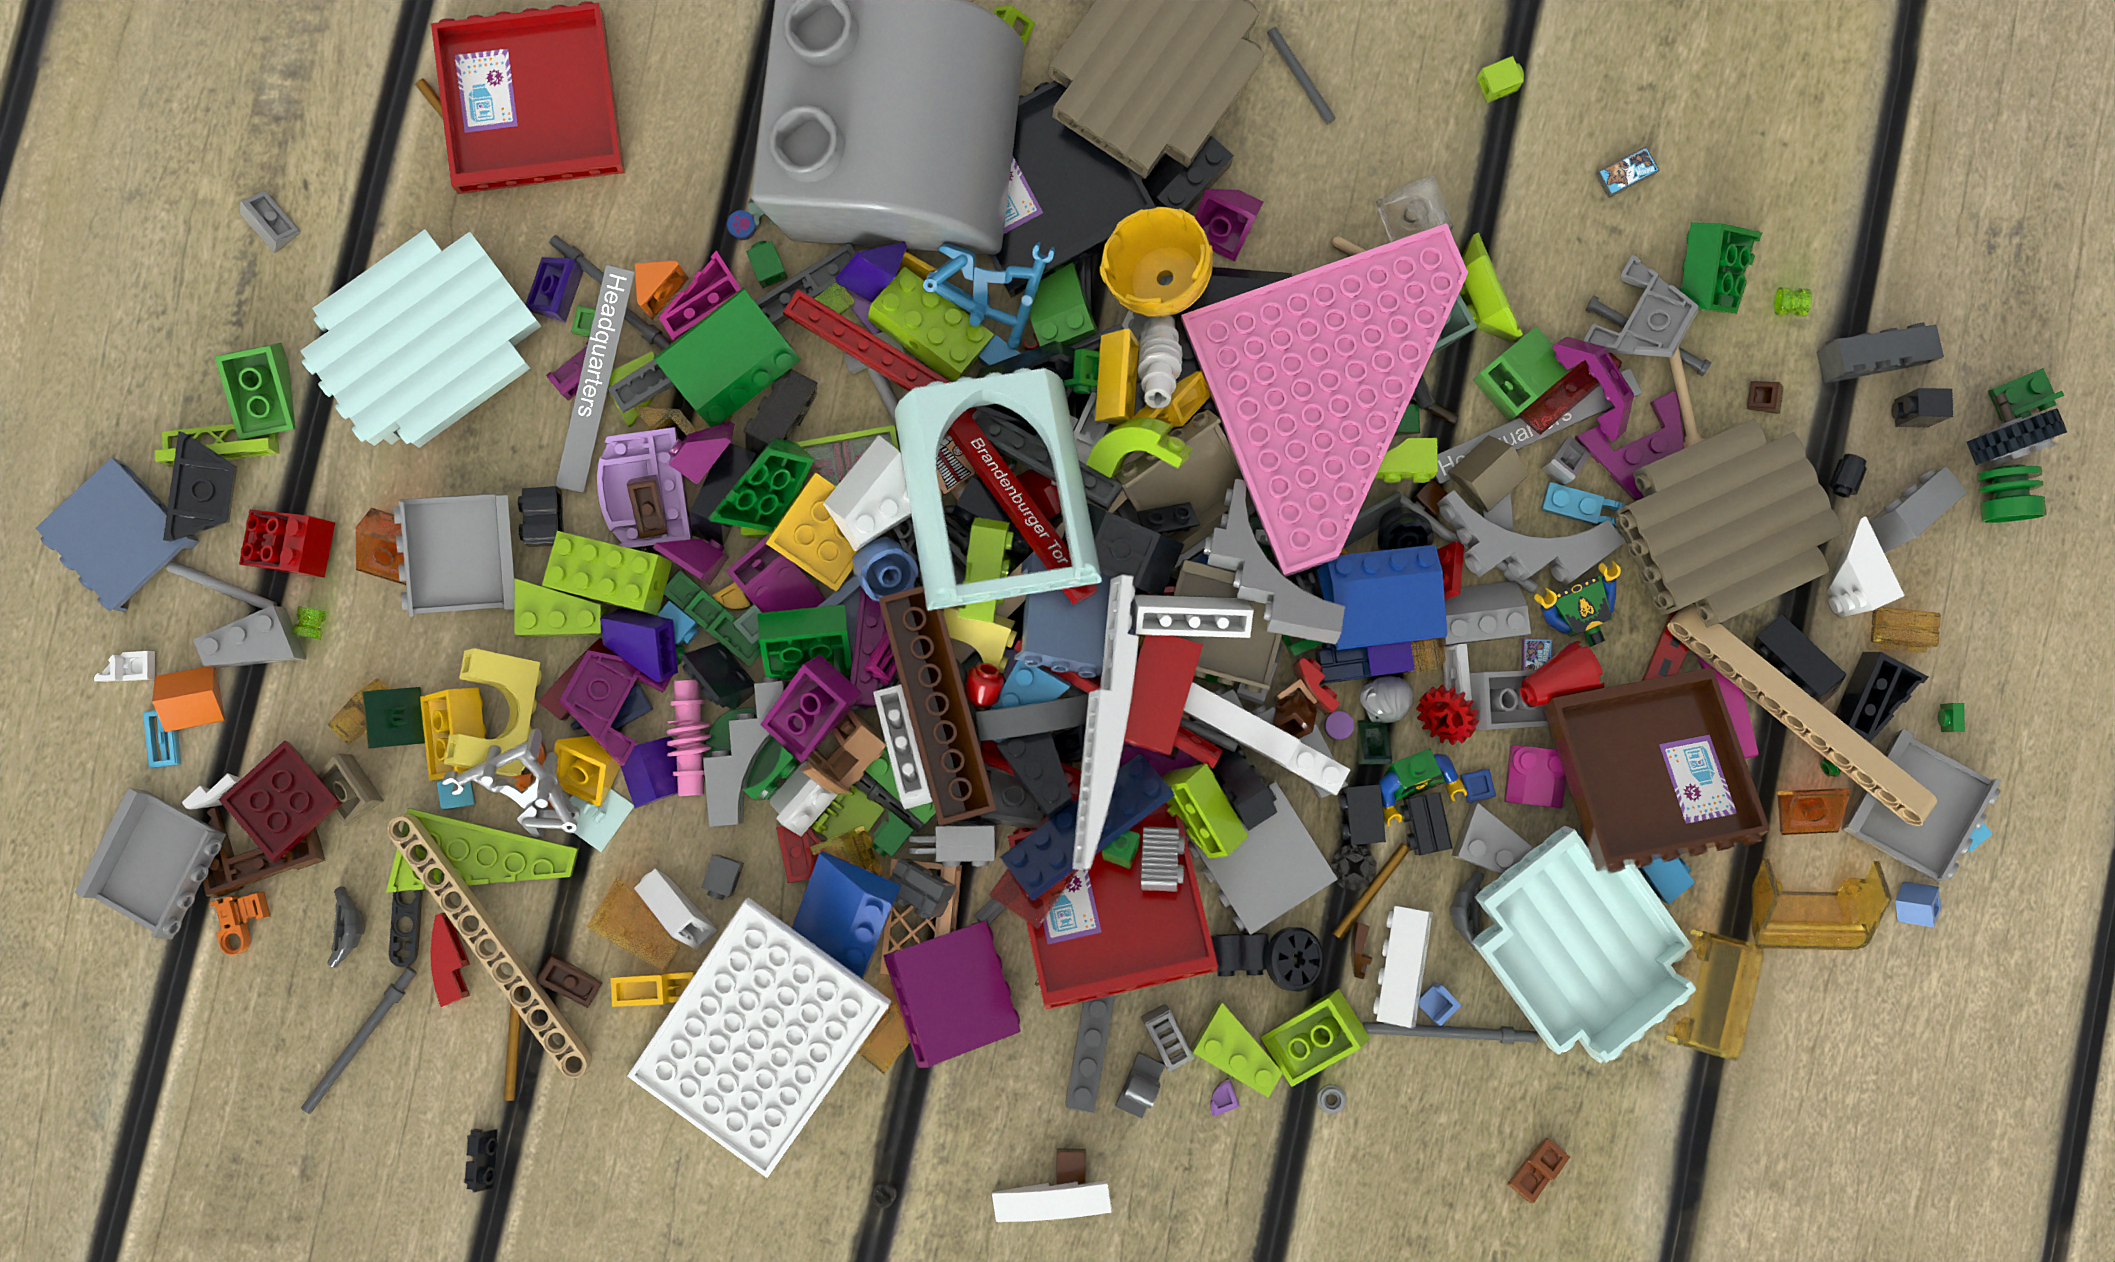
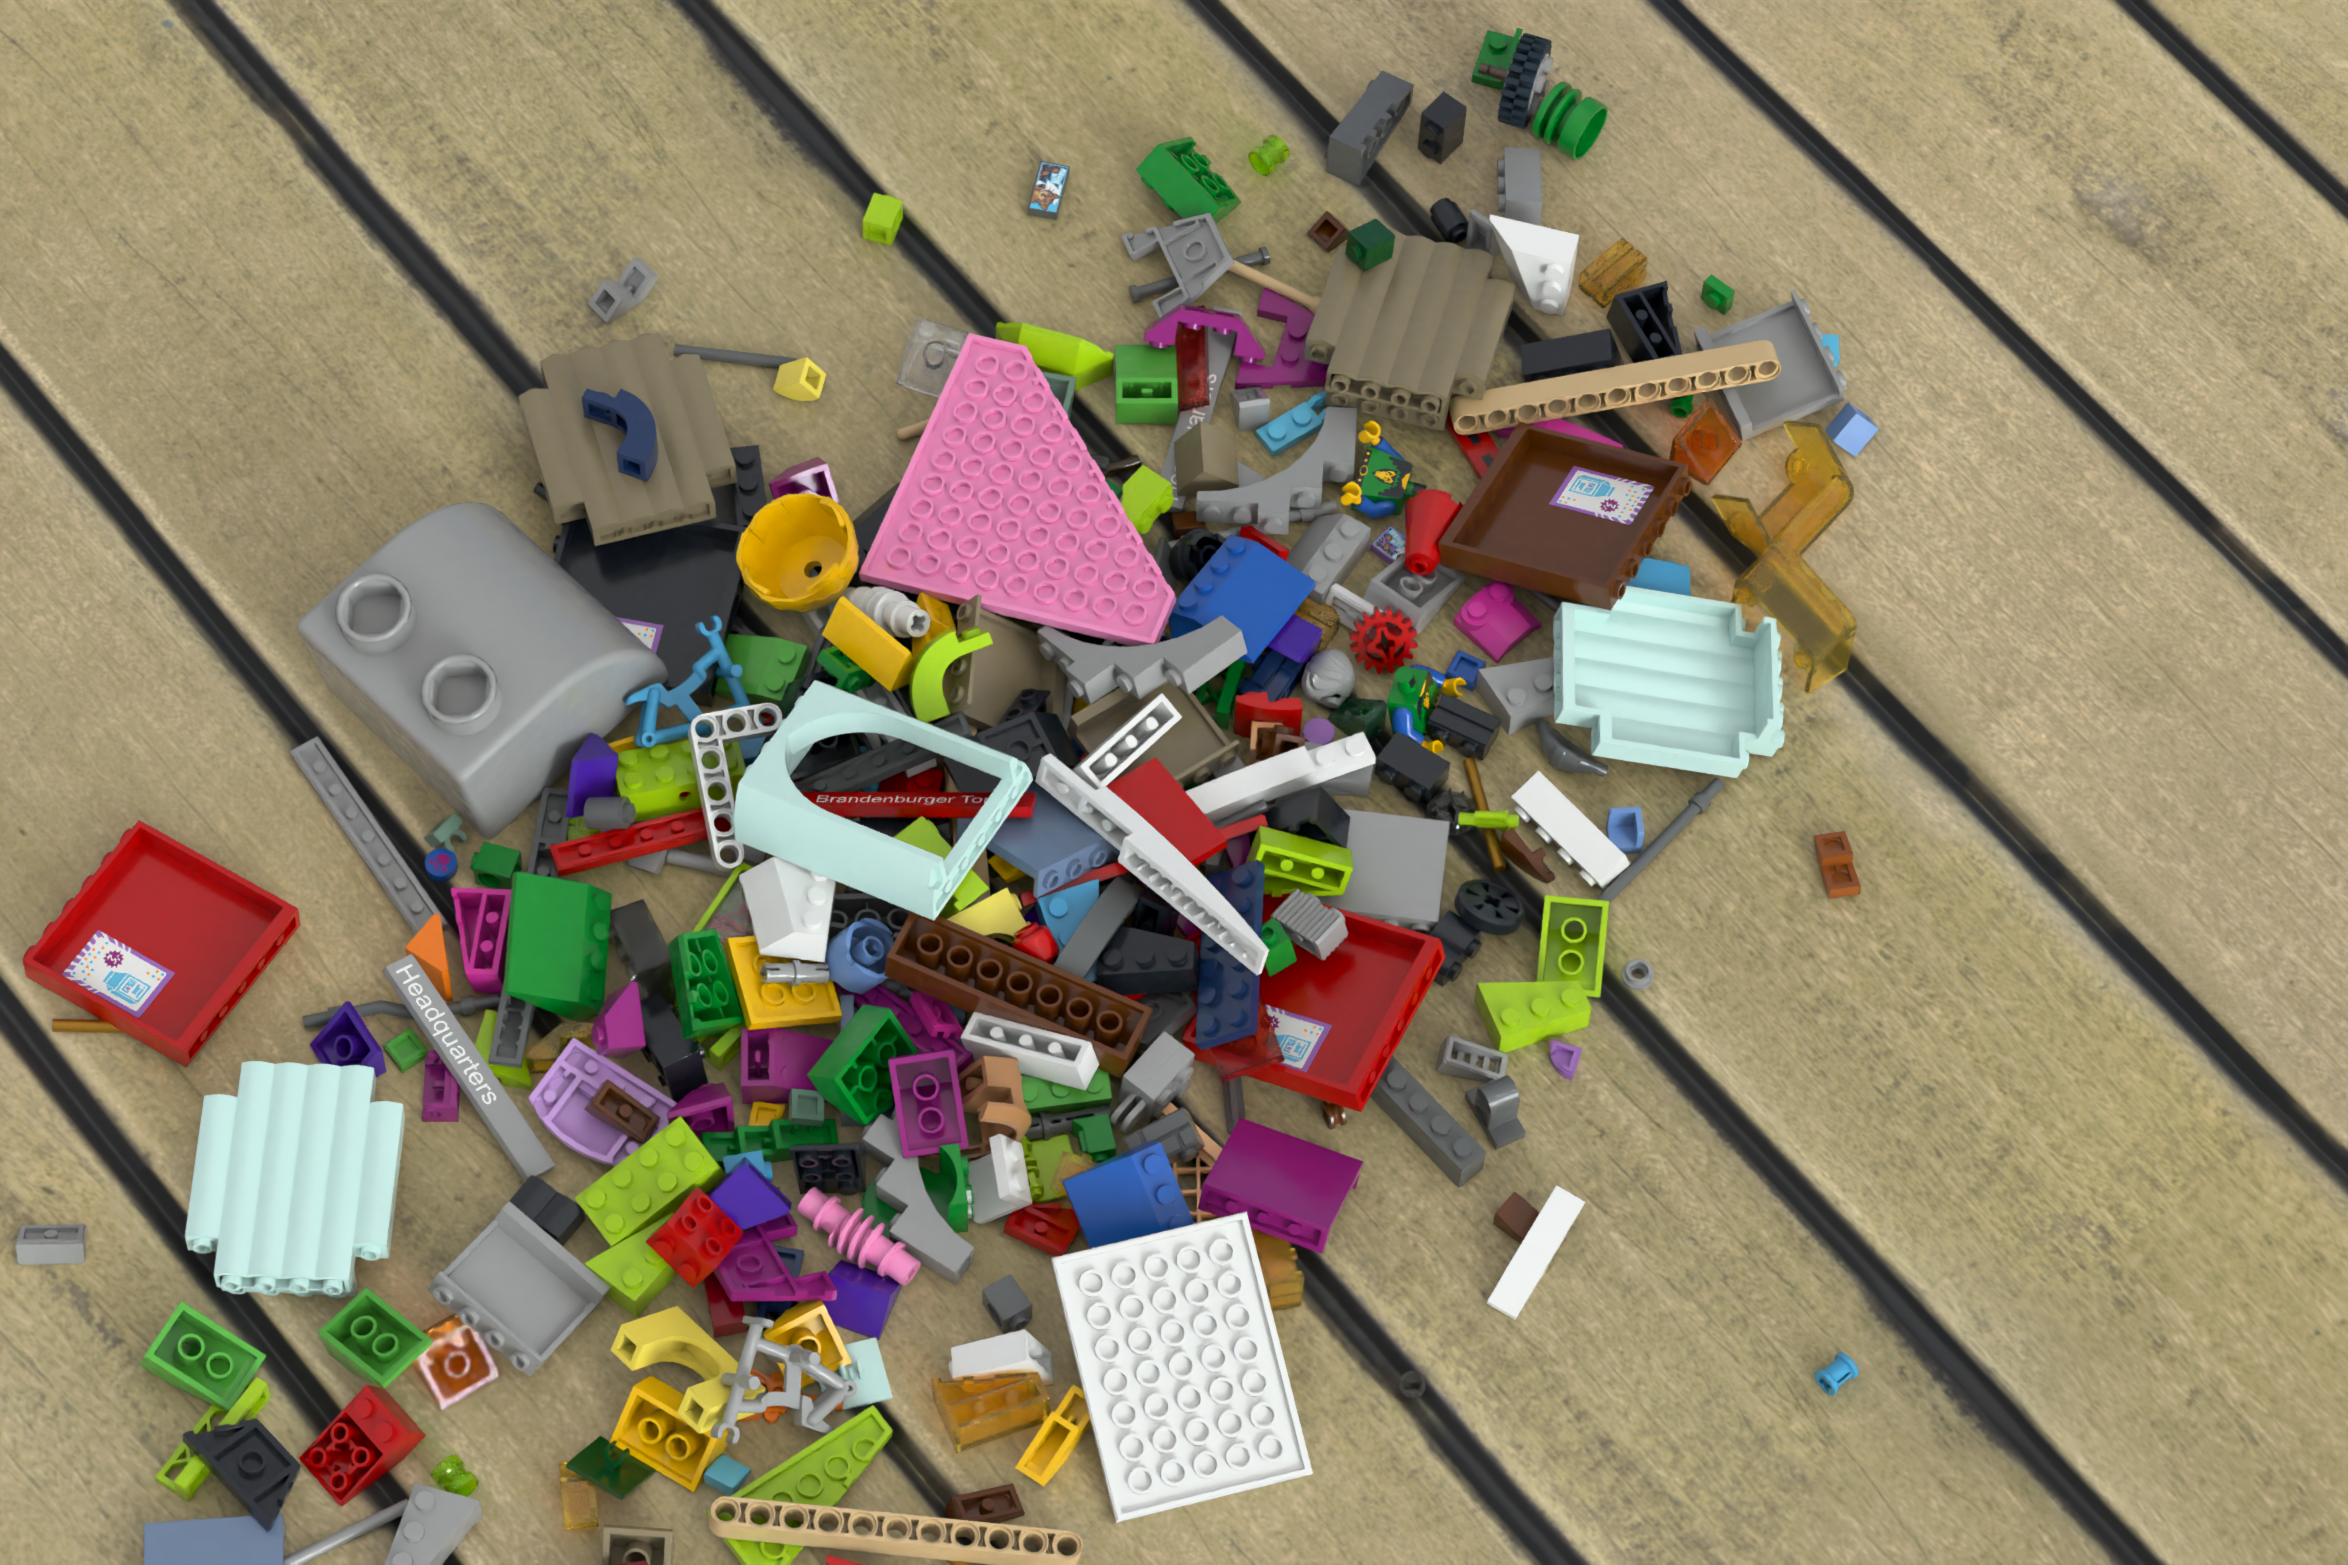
camera: 50 degrees left, 25 degrees down
(349, 492) = (373, 1339): none -> bright green slope
(586, 640) = (695, 1238): none -> red bracket
(721, 161) = (365, 834): none -> light grey tile
(830, 537) = (794, 973): none -> light grey pin
(852, 307) = (609, 813): none -> dark grey brick
(935, 358) = (720, 776): none -> white beam
(1146, 81) = (630, 415): none -> dark blue arch
(1317, 136) = (800, 380): none -> light yellow brick
(1363, 905) = (1490, 819): none -> lime piece
(1769, 443) = (1370, 244): none -> dark green brick
(1852, 510) = (1481, 234): none -> light grey slope

